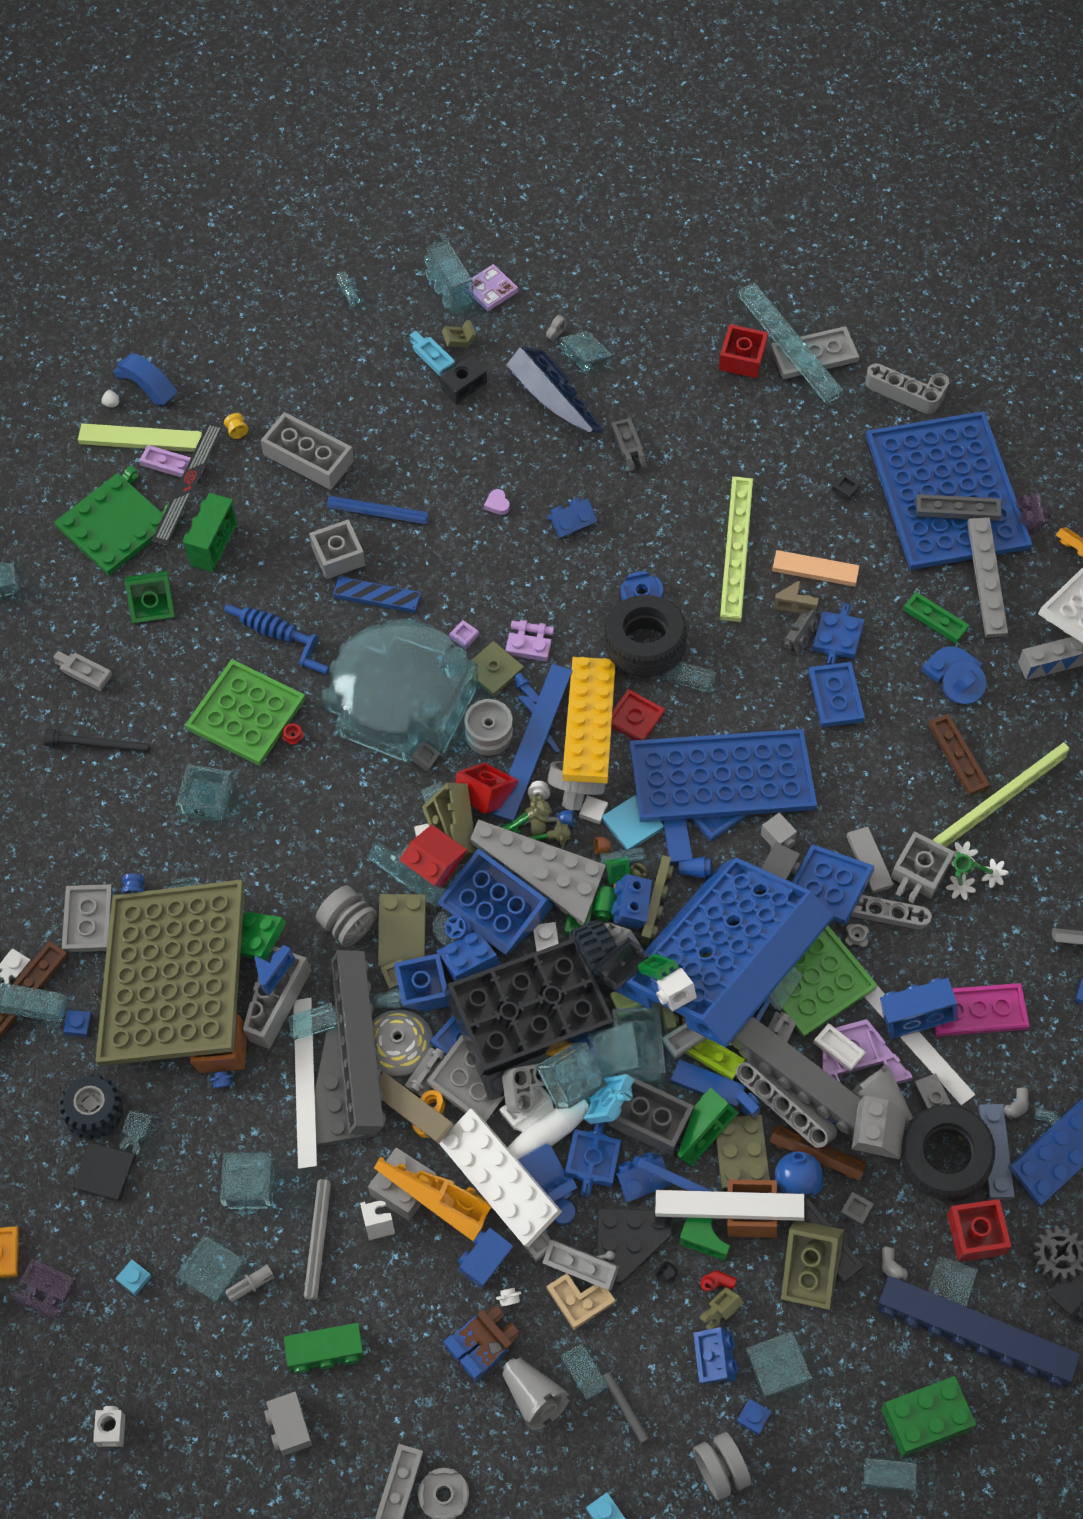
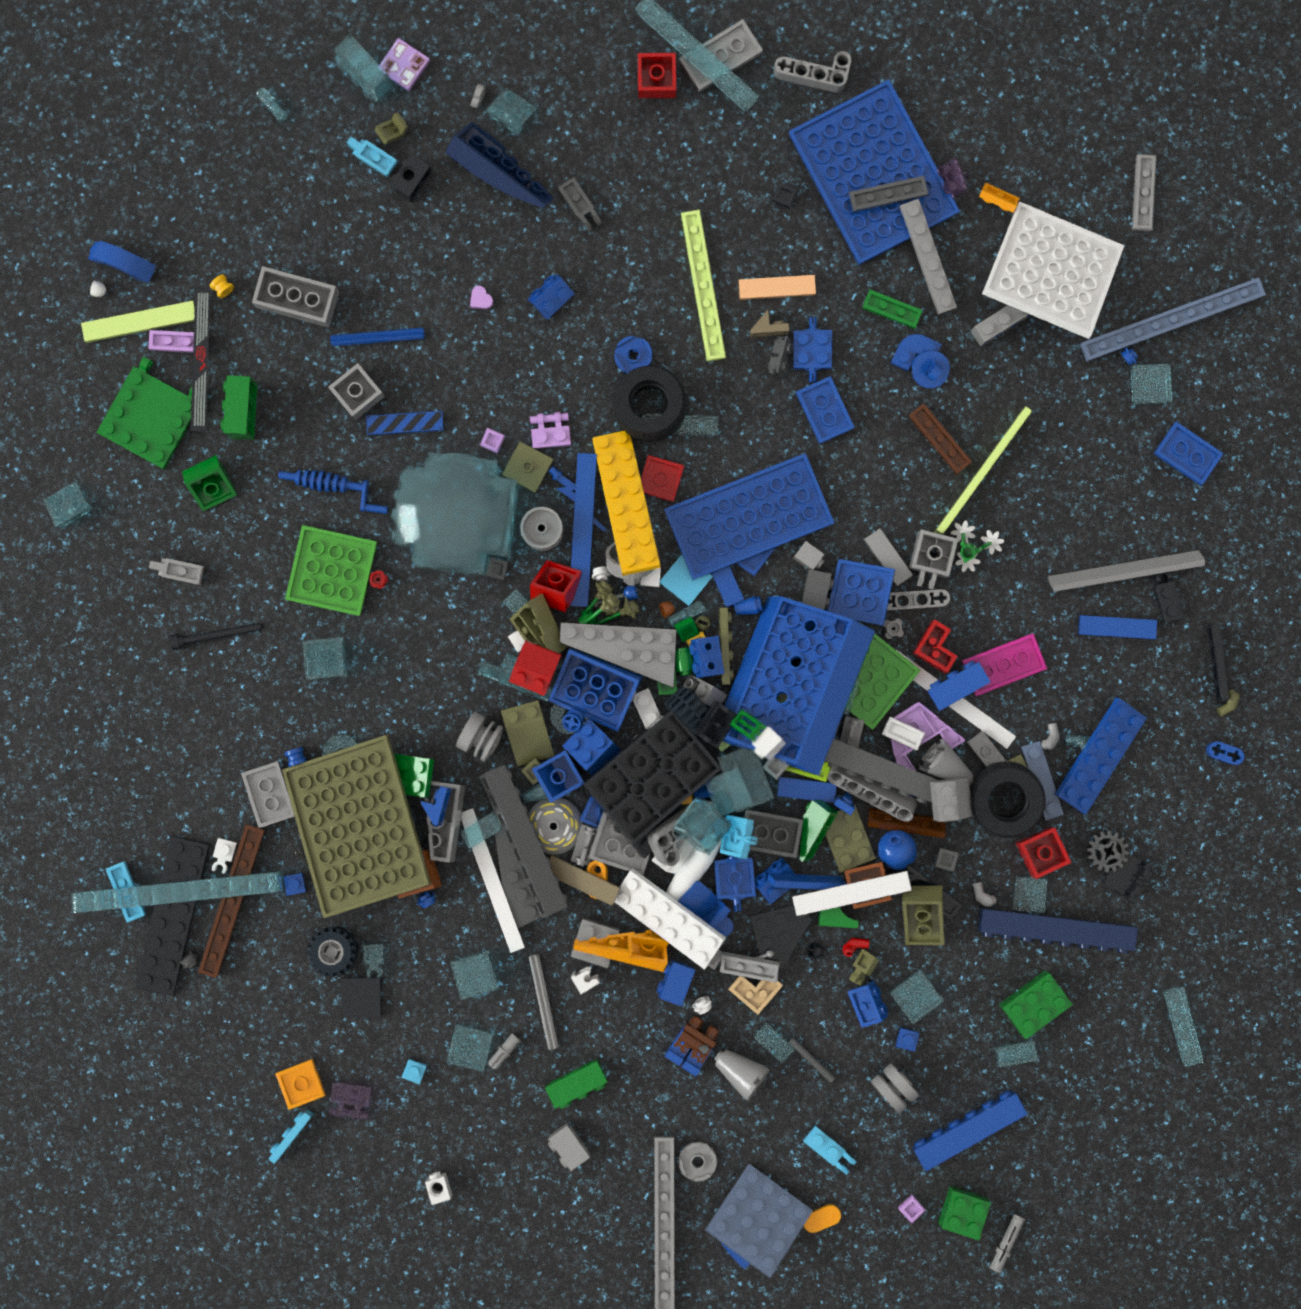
camera: 15 degrees left, 25 degrees up
(896, 964) = (931, 650): none -> red brick

